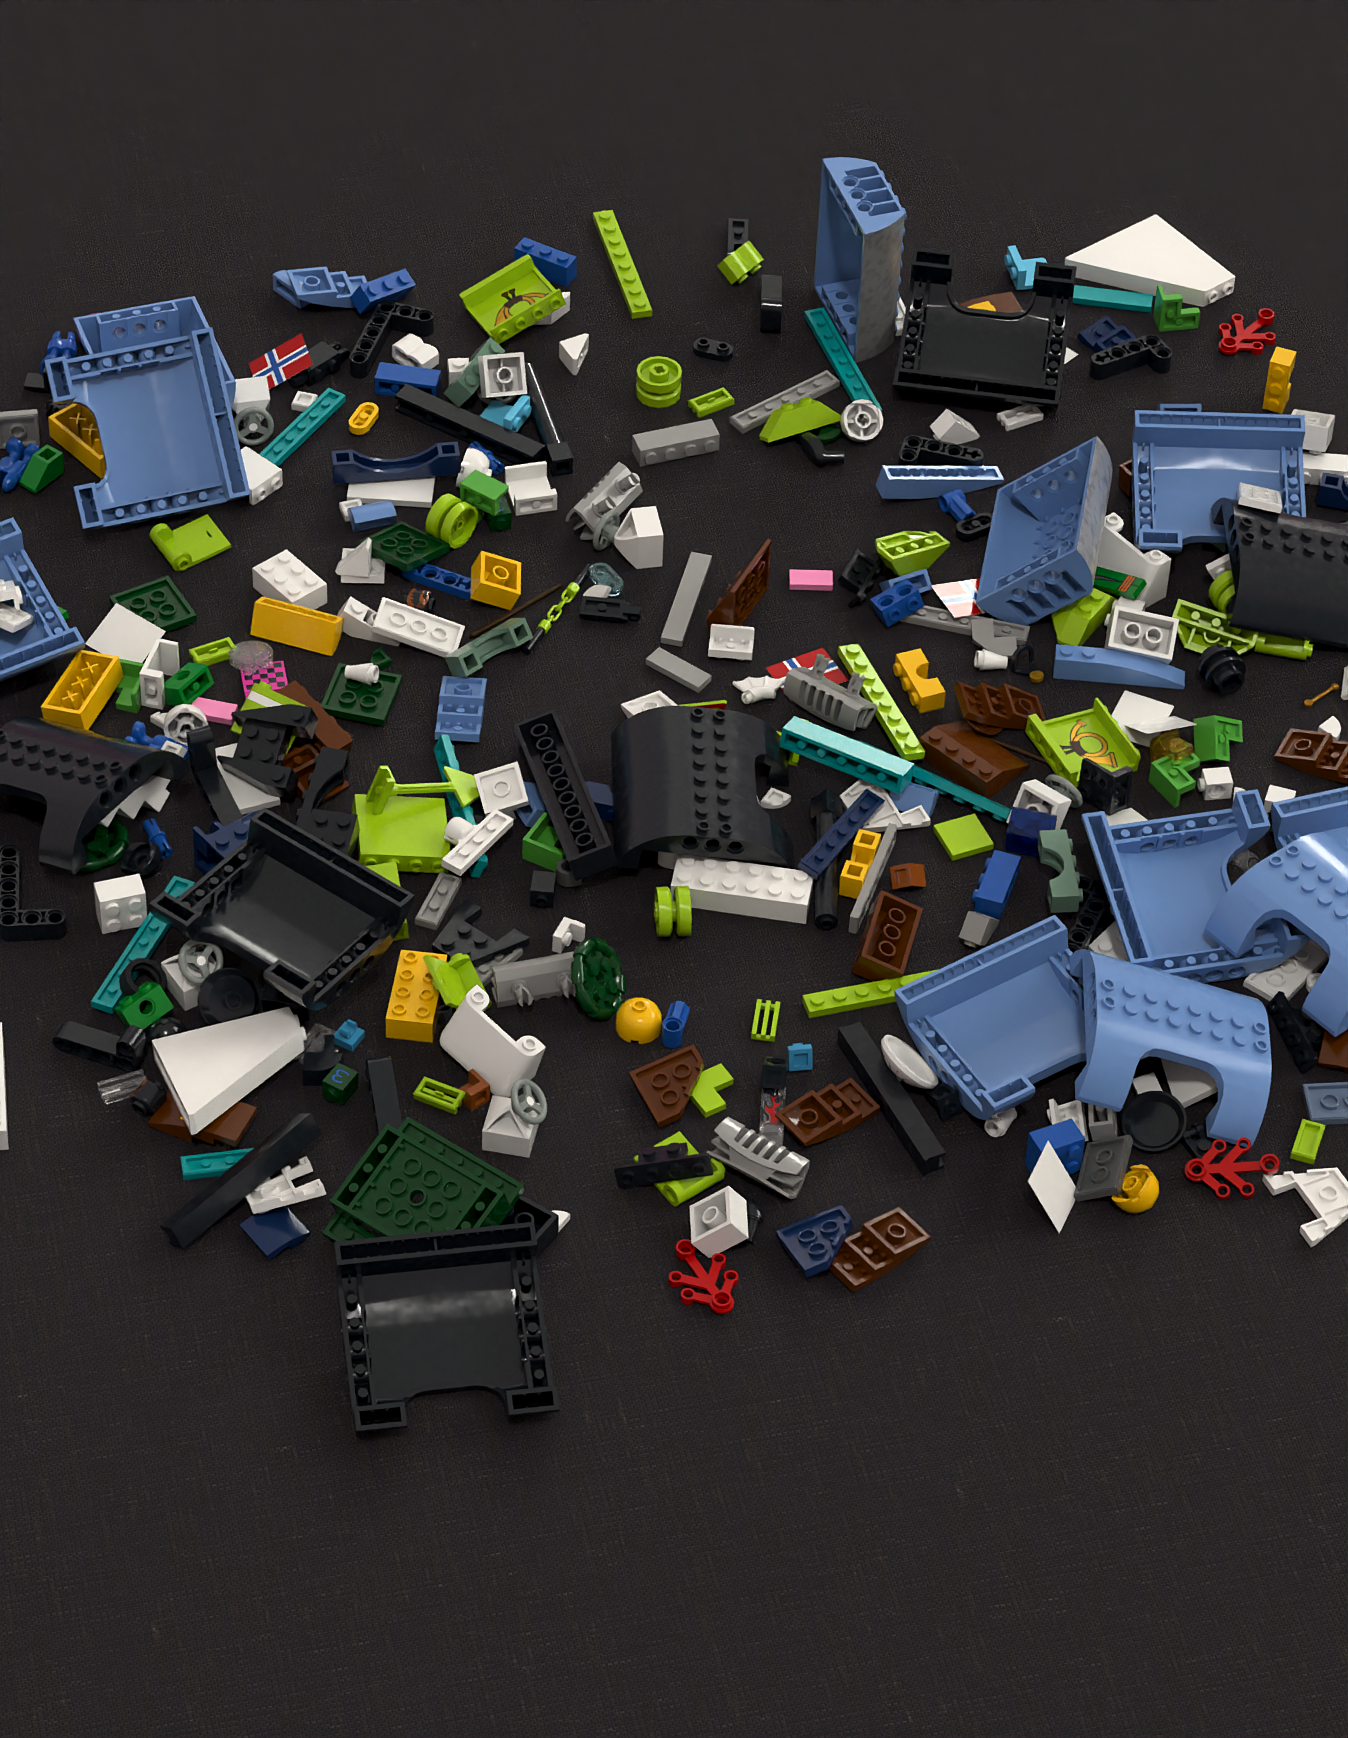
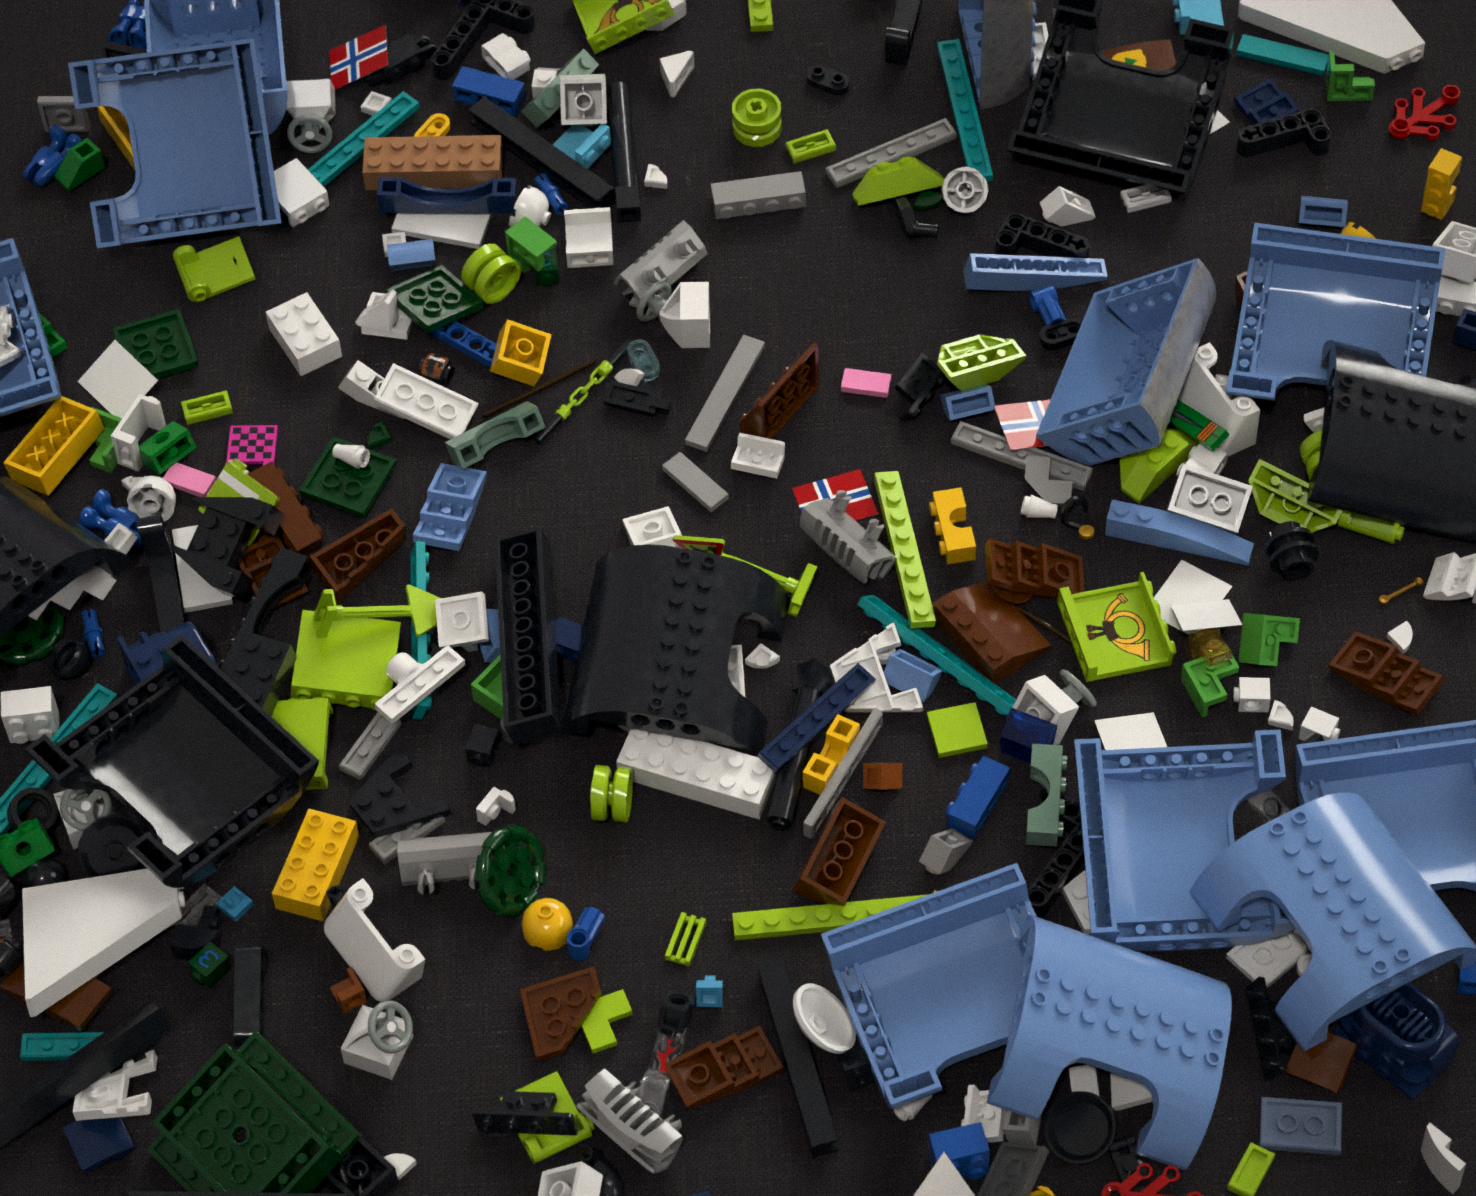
camera: 15 degrees right, 10 degrees up
(251, 656) = (242, 418): clear tile -> none
(296, 626) = (298, 385): yellow brick -> none
(375, 437) = (433, 160): none -> medium nougat brick
(389, 747) = (357, 554): none -> reddish brown wedge
(437, 1098) = (328, 1002): lime tile -> none
(454, 978) = (354, 857): lime door -> none
(578, 439) = (655, 177): none -> white tile
(758, 688) = (776, 514): white arm -> none
(846, 755) = (844, 620): teal brick -> none
(897, 602) = (950, 425): blue brick -> none
(1104, 788) = (1124, 694): black bracket -> none
(1259, 497) = (1374, 344): white tile -> none

